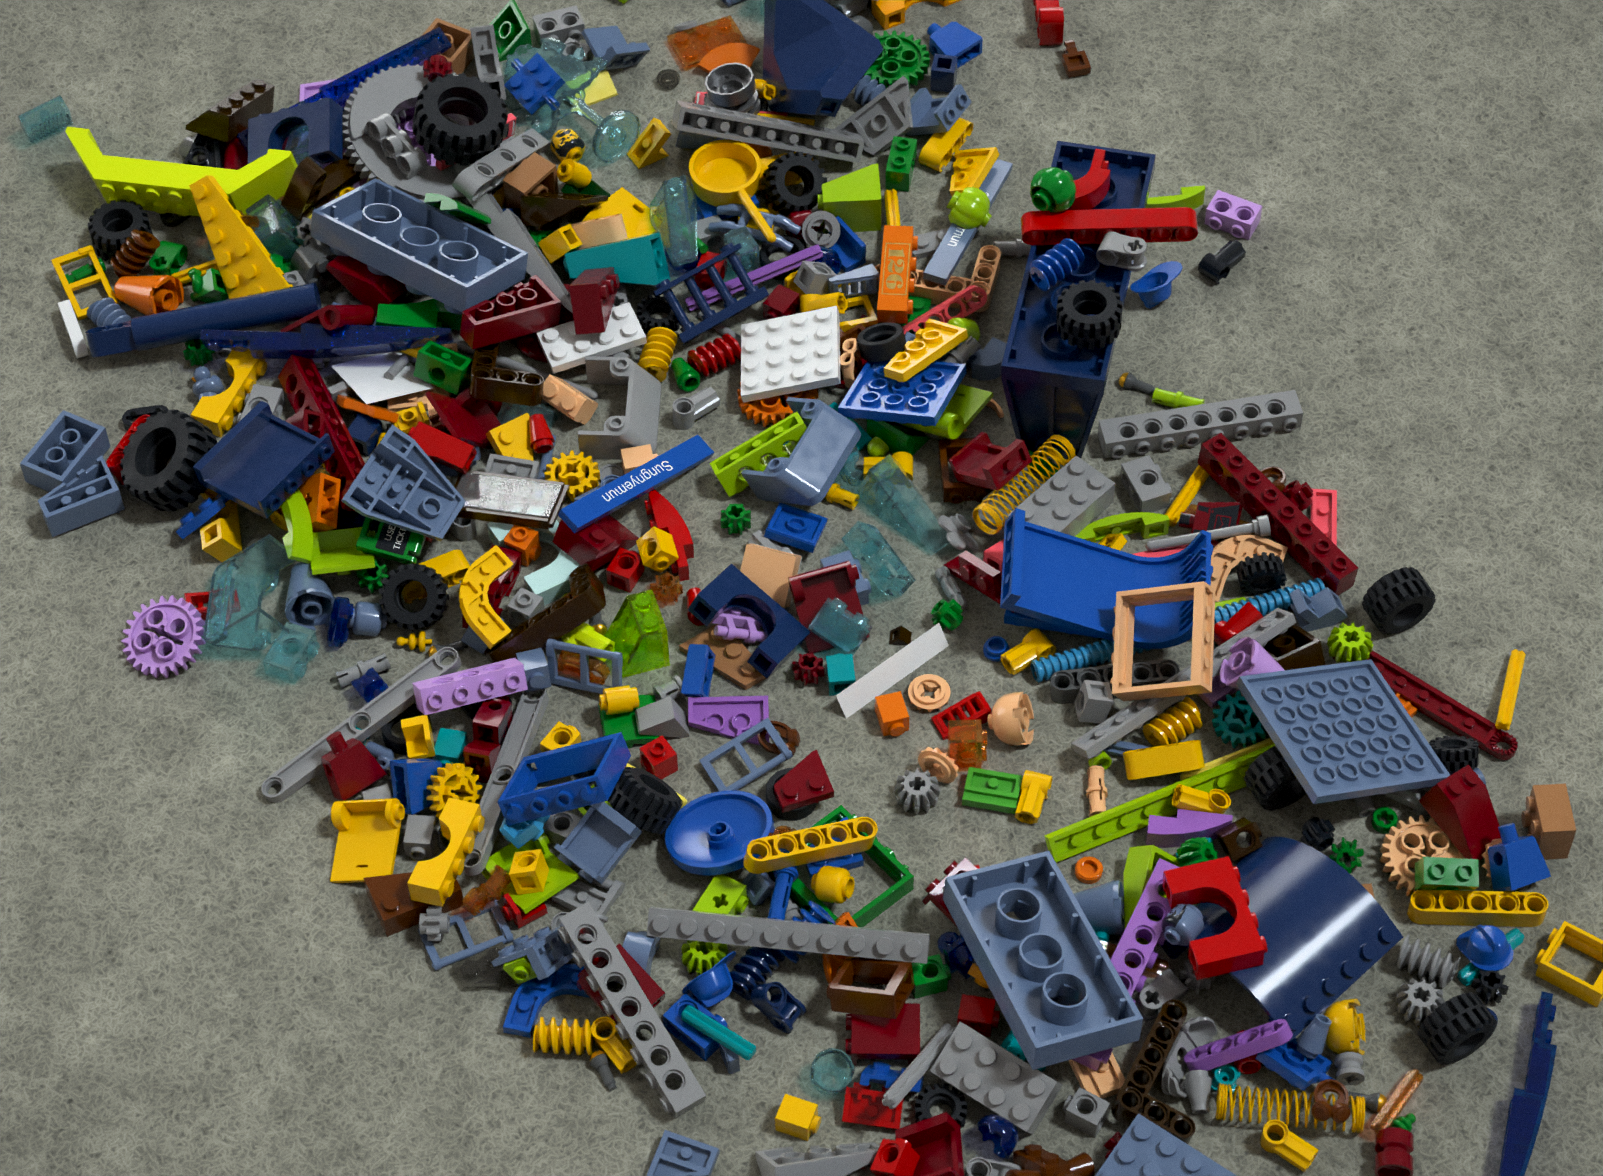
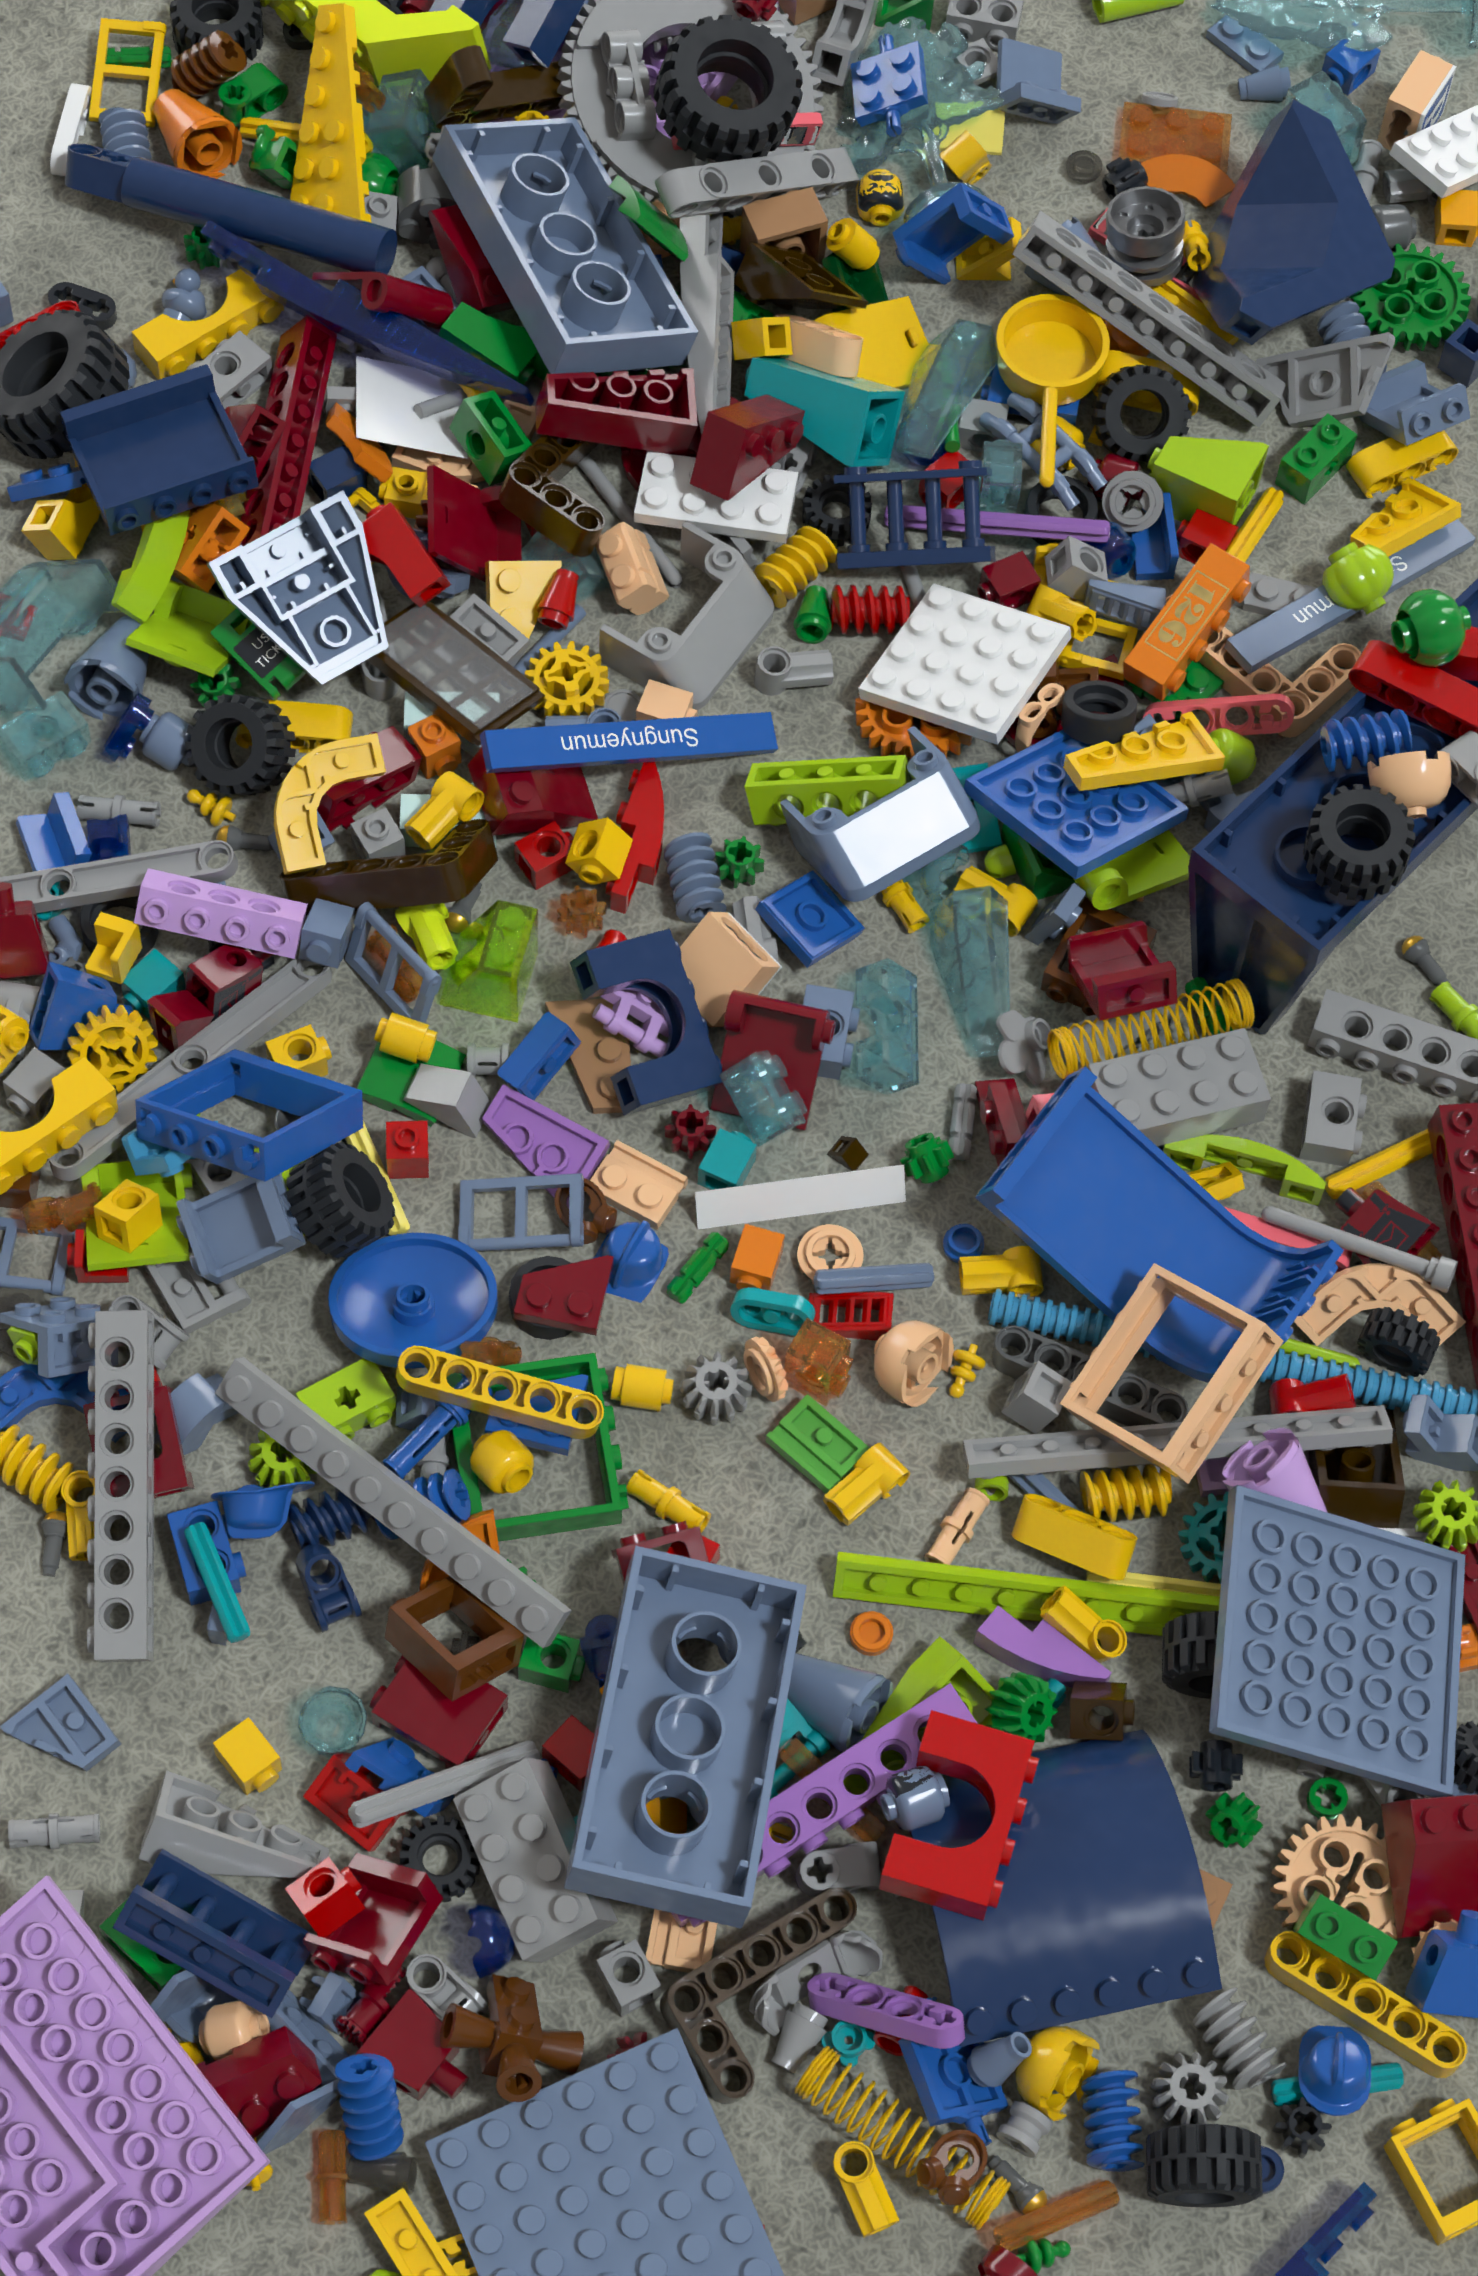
camera: 25 degrees right, 10 degrees up
(337, 700) = (54, 837): none -> panel
(557, 565) = (449, 803): none -> yellow piece
(604, 100) = (966, 158): none -> yellow piece
(623, 139) = (948, 229): none -> blue panel
(696, 73) = (1123, 176): none -> black gear
(717, 539) = (694, 877): none -> sand blue piece
(799, 710) = (638, 1184): none -> light nougat plate
(828, 748) = (637, 1259): none -> blue piece
(861, 737) = (697, 1267): none -> green axle
(871, 231) = (1200, 531): none -> red brick
(879, 809) = (642, 1387): none -> yellow brick
(920, 735) = (771, 1310): none -> teal plate
(929, 456) = (1056, 915): none -> sand blue plate
(930, 862) = (667, 1501): none -> yellow pin
(962, 690) = (873, 1278): none -> sand blue axle
(1042, 707) = (963, 1373): none -> yellow hair
(1095, 266) = (1413, 779): none -> light nougat cylinder
(1390, 1039) = (1110, 2121): none -> blue piece

